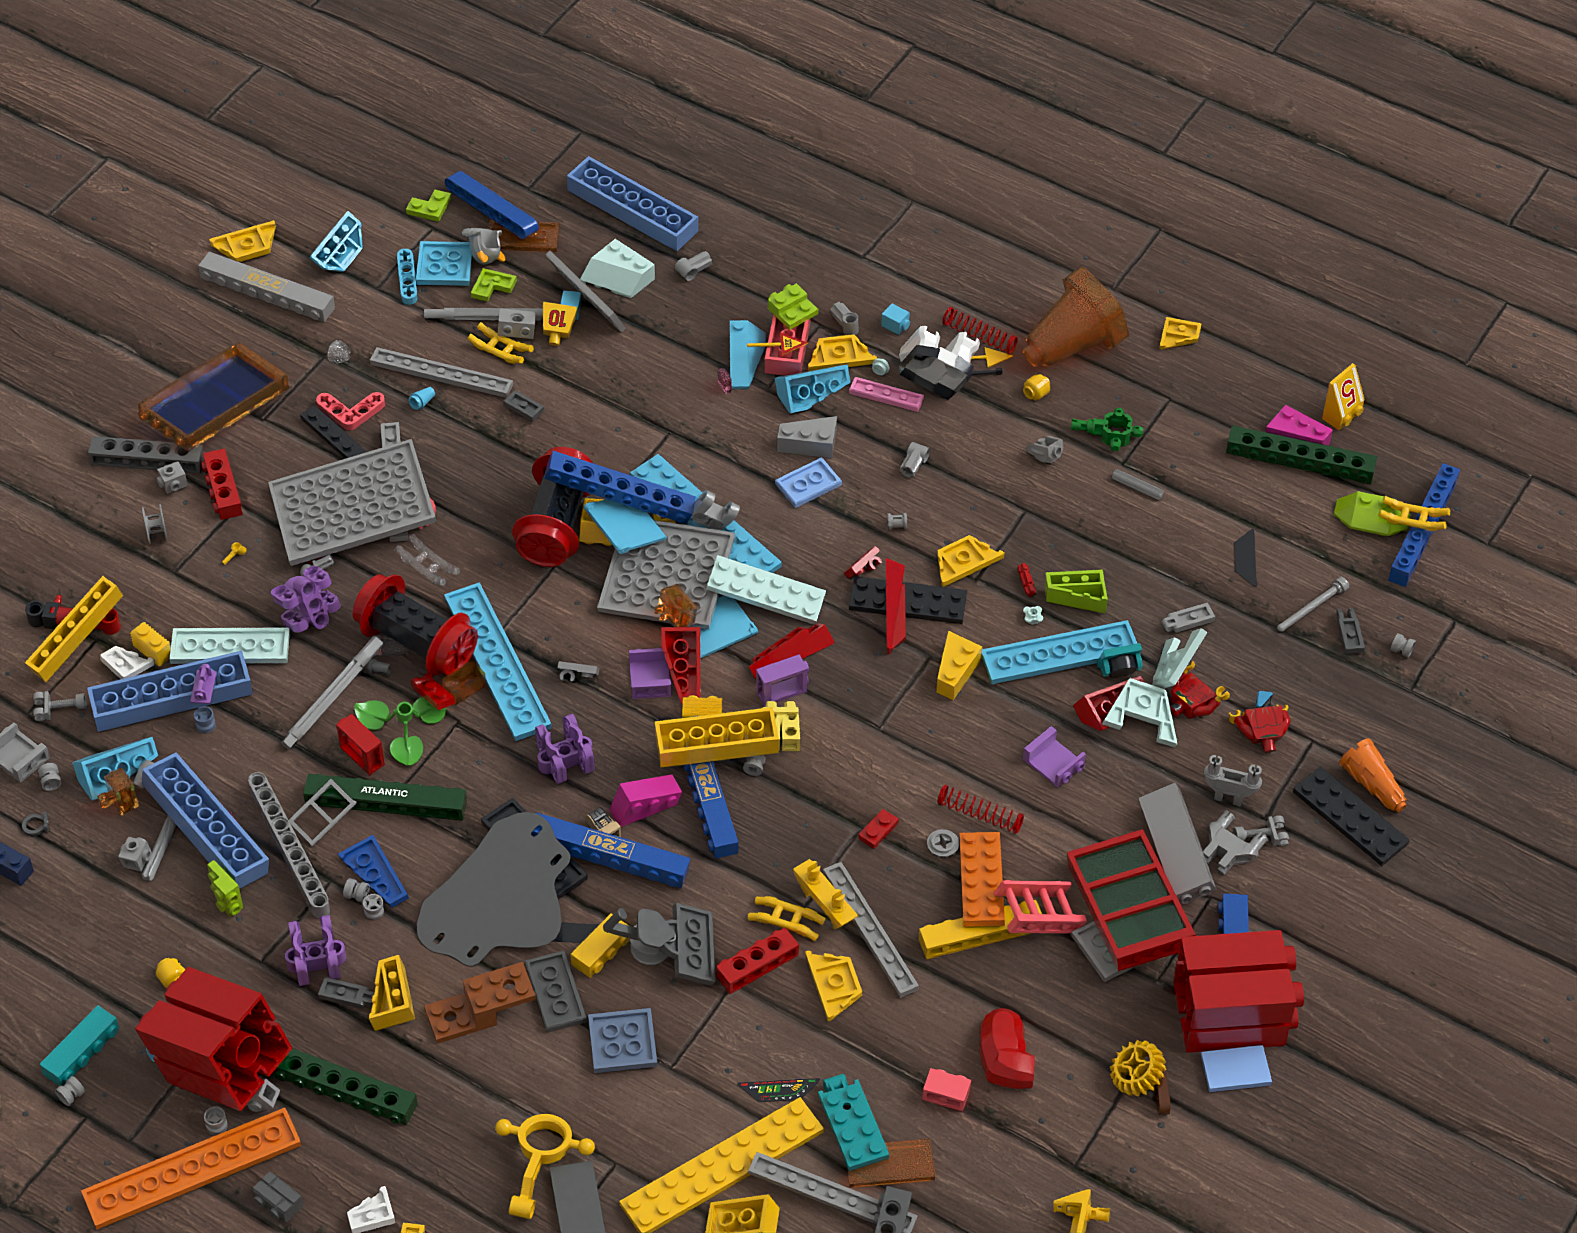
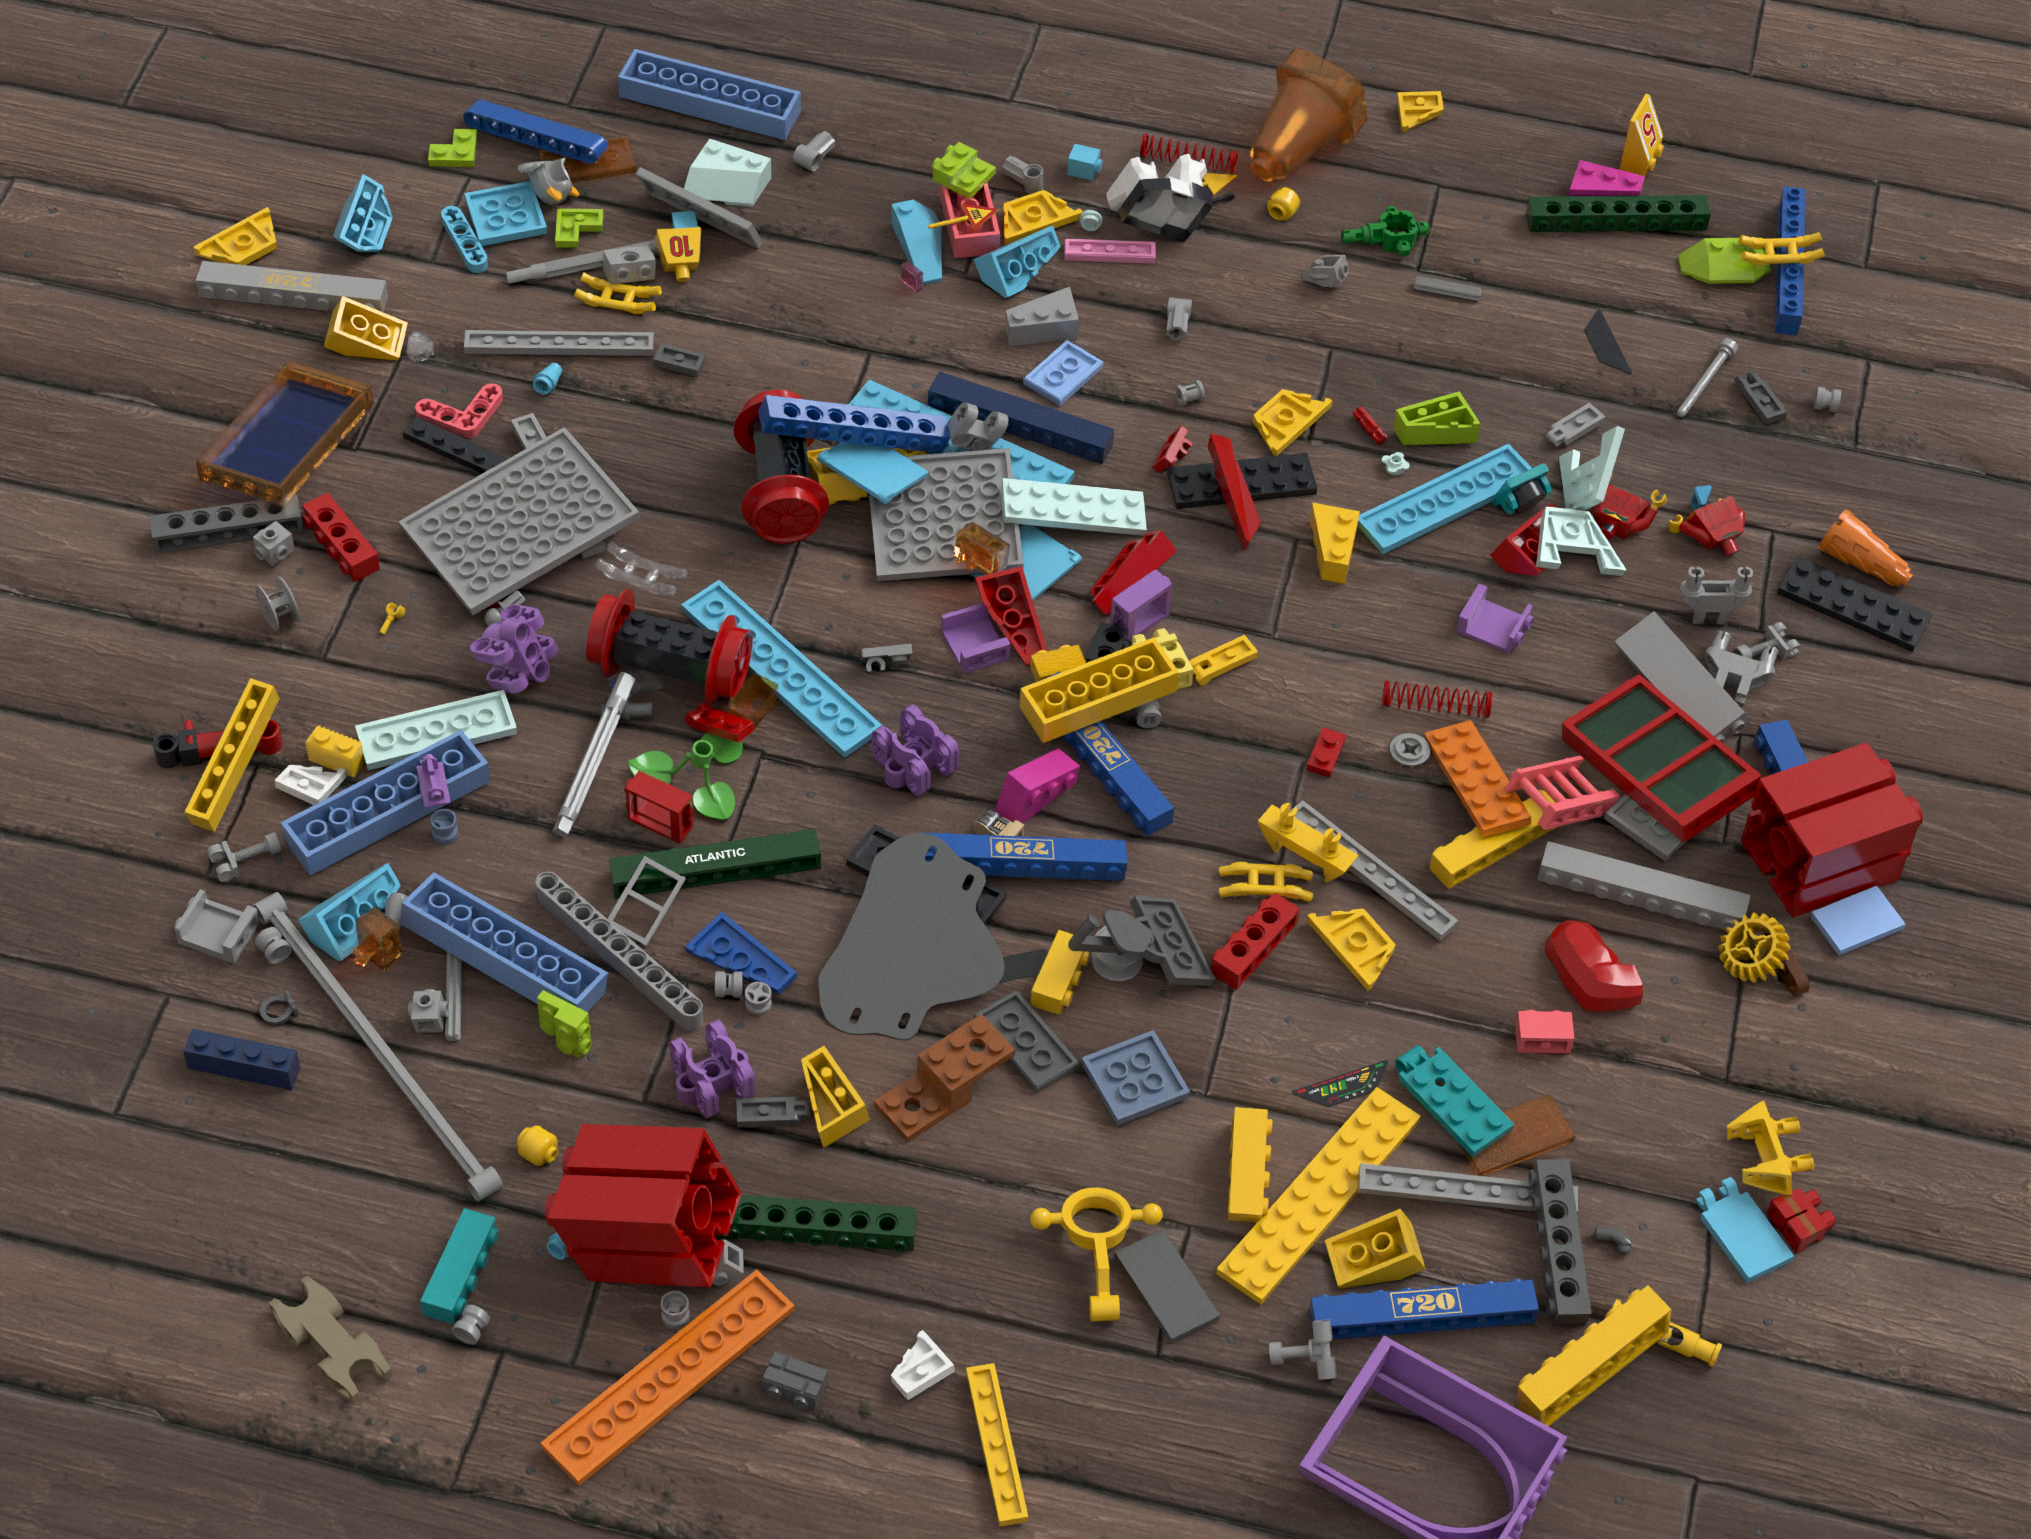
camera: 20 degrees left, 0 degrees up
(121, 989) = (481, 1181): none -> light grey piece
(304, 332) = (364, 331): none -> yellow slope
(673, 1129) = (1247, 1165): none -> yellow wedge
(744, 700) = (1107, 641): none -> black brick
(760, 511) = (1025, 417): none -> dark blue brick
(829, 736) = (1223, 659): none -> yellow plate
(1073, 997) = (1642, 887): none -> light grey brick

